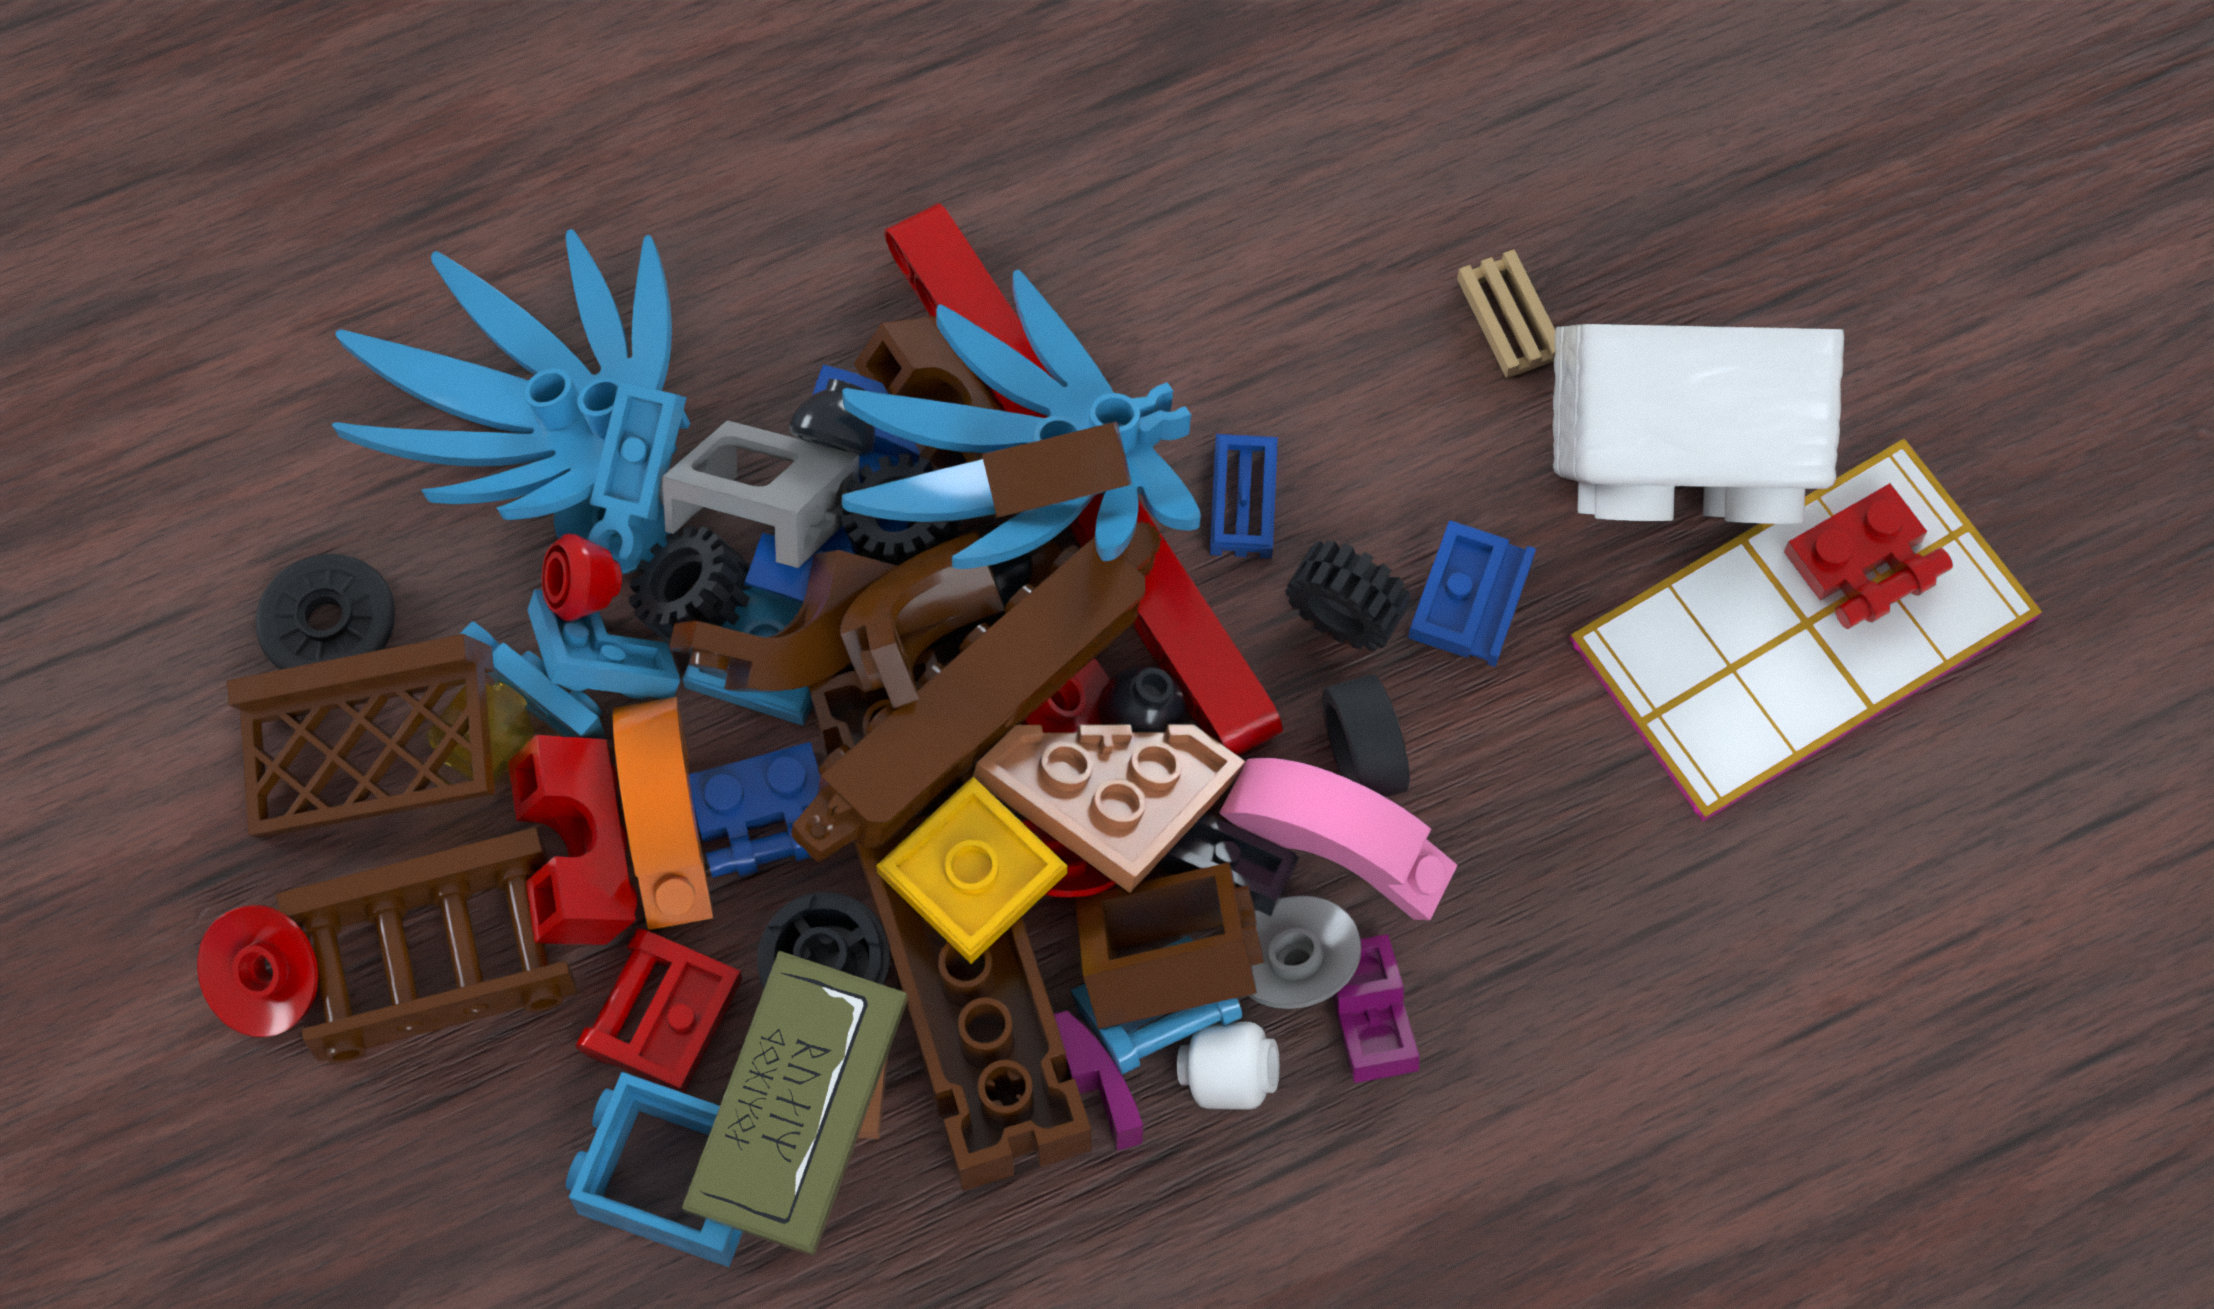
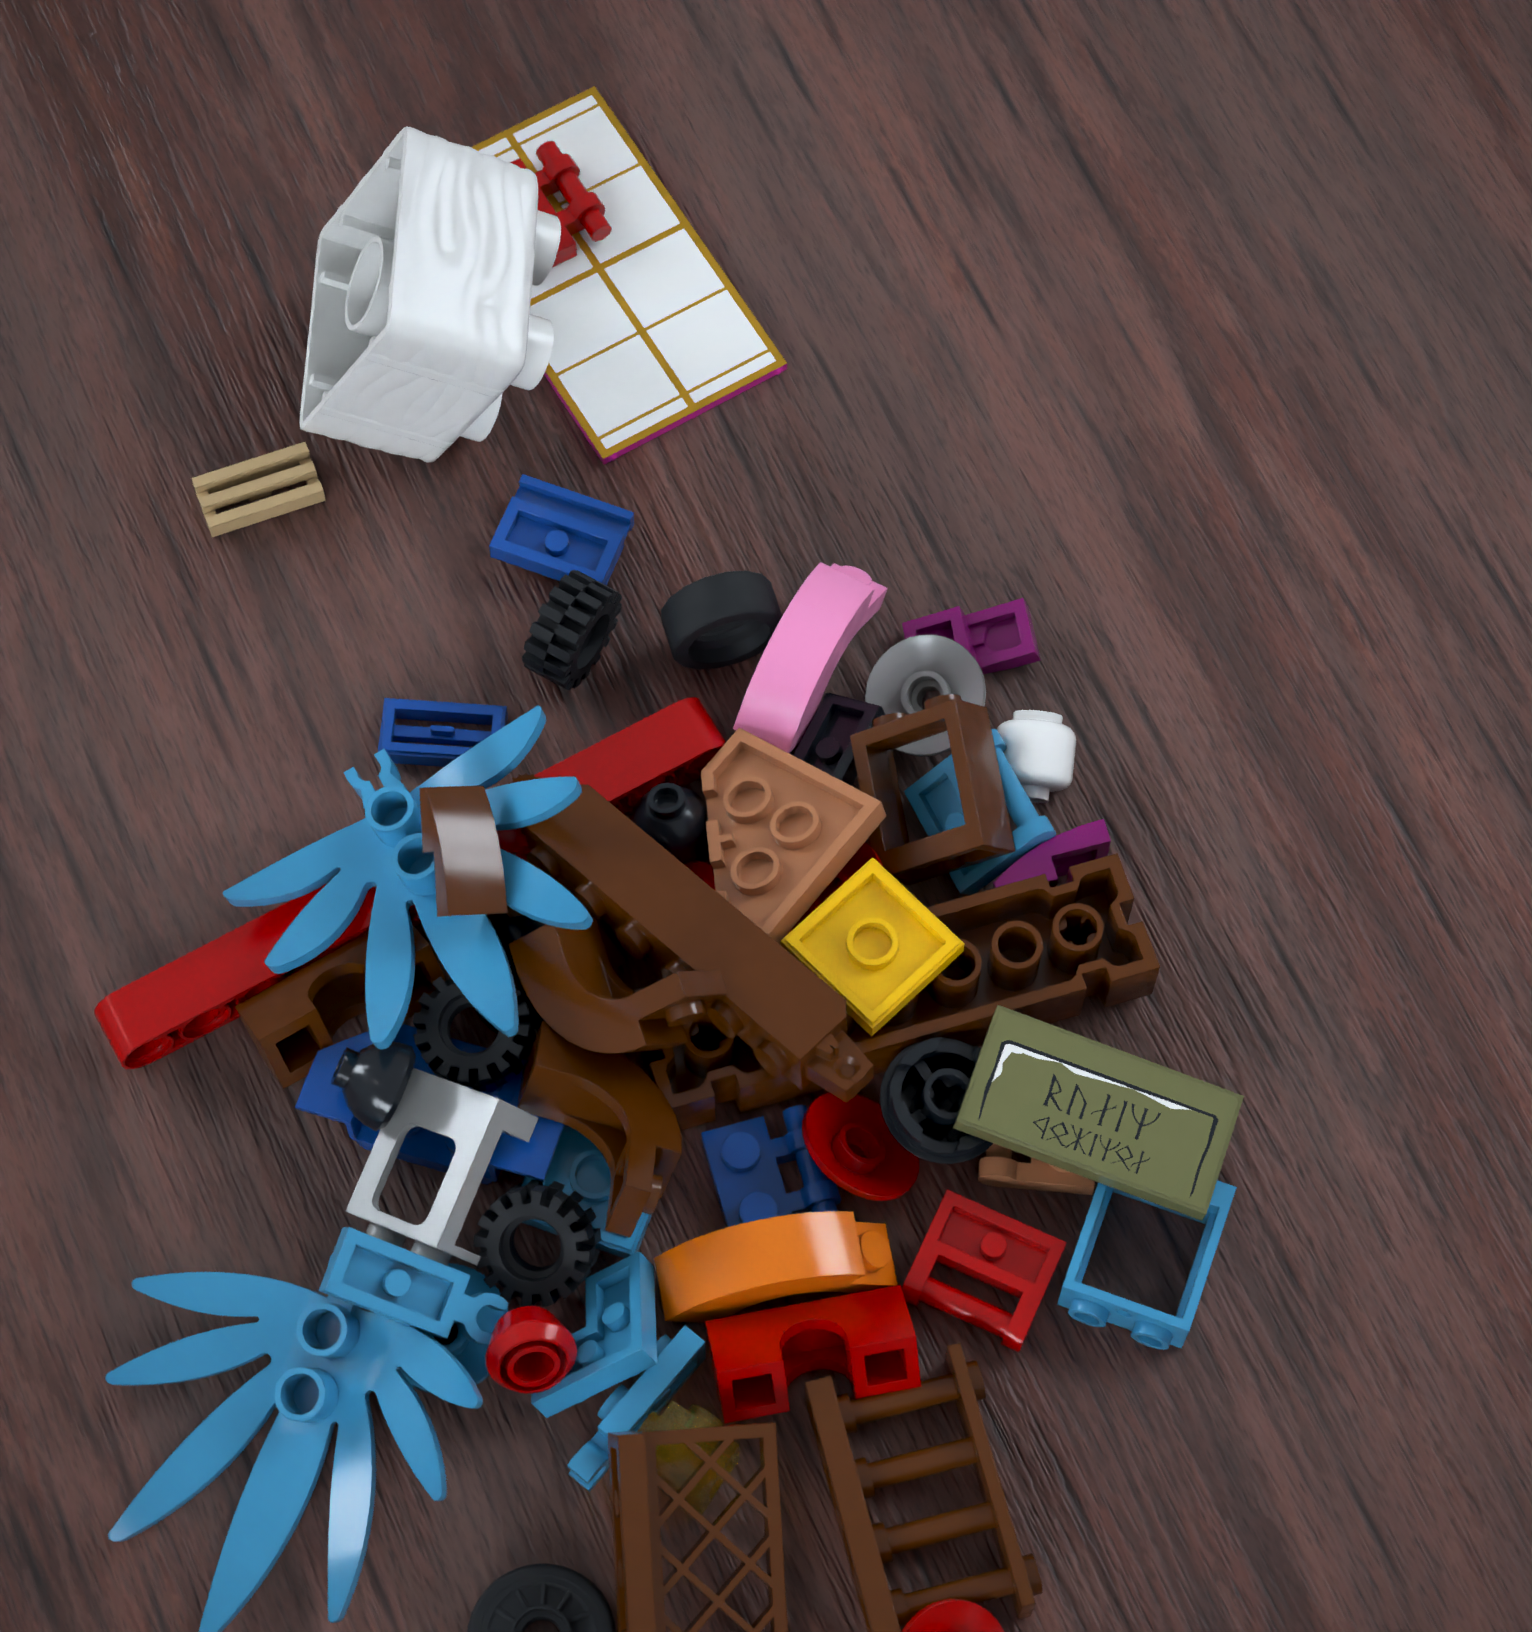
camera: 90 degrees left, 0 degrees up
(758, 861) = (857, 1148): none -> red dish

